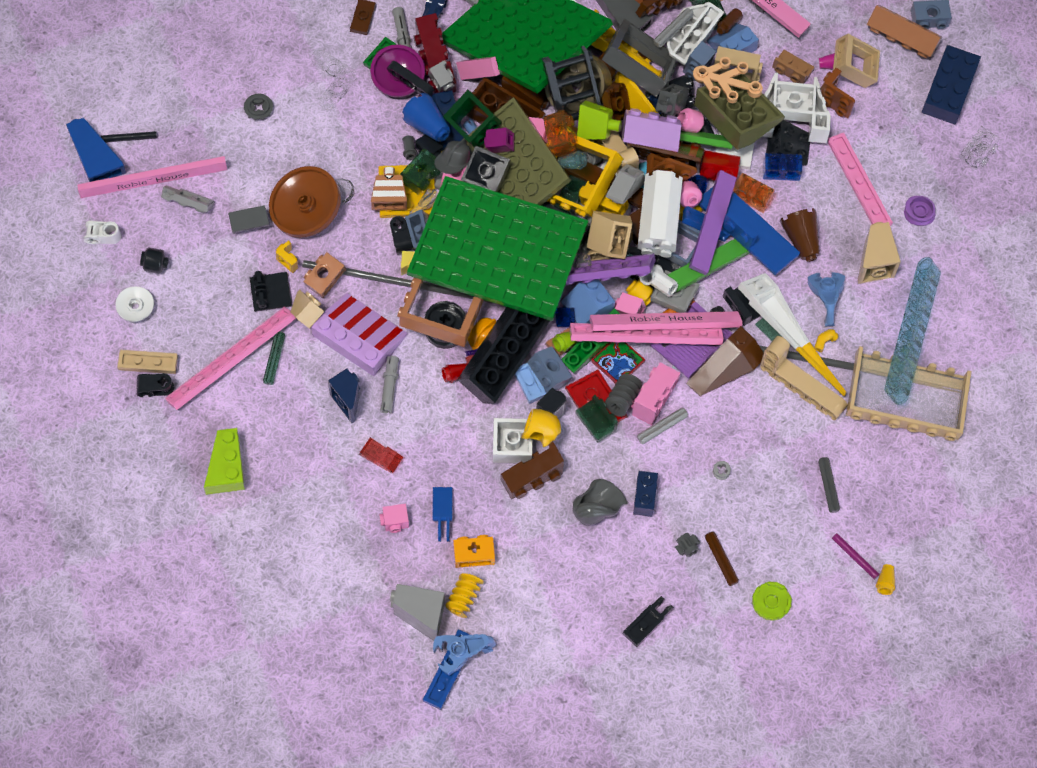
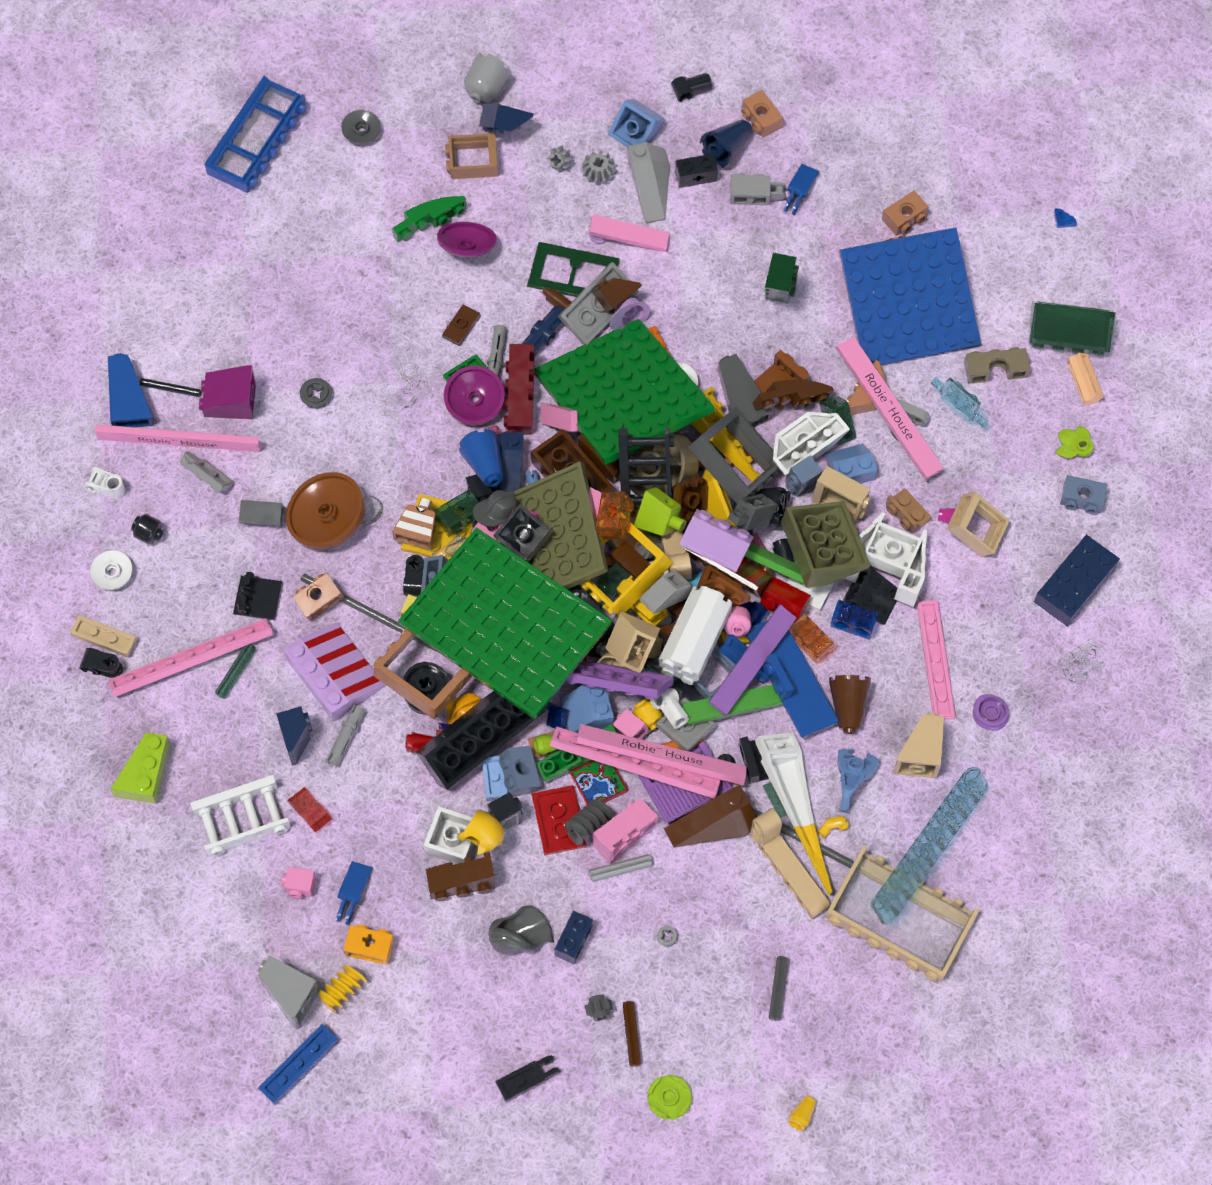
camera: 20 degrees right, 0 degrees up
(183, 126) = (229, 393): none -> magenta slope
(287, 260) = (285, 565): yellow bracket -> none
(306, 308) = (285, 628): tan slope -> none
(321, 458) = (224, 802): none -> white fence
(409, 147) = (458, 482): dark grey pin -> none
(410, 78) = (483, 409): black beam -> none
(441, 77) = (516, 416): light grey brick -> none
(462, 108) = (521, 458): dark green window -> none
(462, 648) = (316, 1047): medium blue animal -> none
(499, 140) = (549, 504): magenta brick -> none
(574, 160) = (618, 550): clear light blue cone -> none
(582, 260) = (593, 660): clear tile -> none
(597, 419) = (550, 840): clear green bracket -> none
(673, 27) = (787, 431): light grey axle -> none
(691, 120) = (768, 540): bright pink head -> none
(726, 79) = (820, 505): light nougat plant -> none
(729, 21) = (854, 440): reddish brown cylinder -> none
(834, 97) = (937, 557): dark orange bracket -> none
(855, 556) = (779, 1076): magenta bar -> none
(904, 30) = (1045, 504): nougat brick -> none

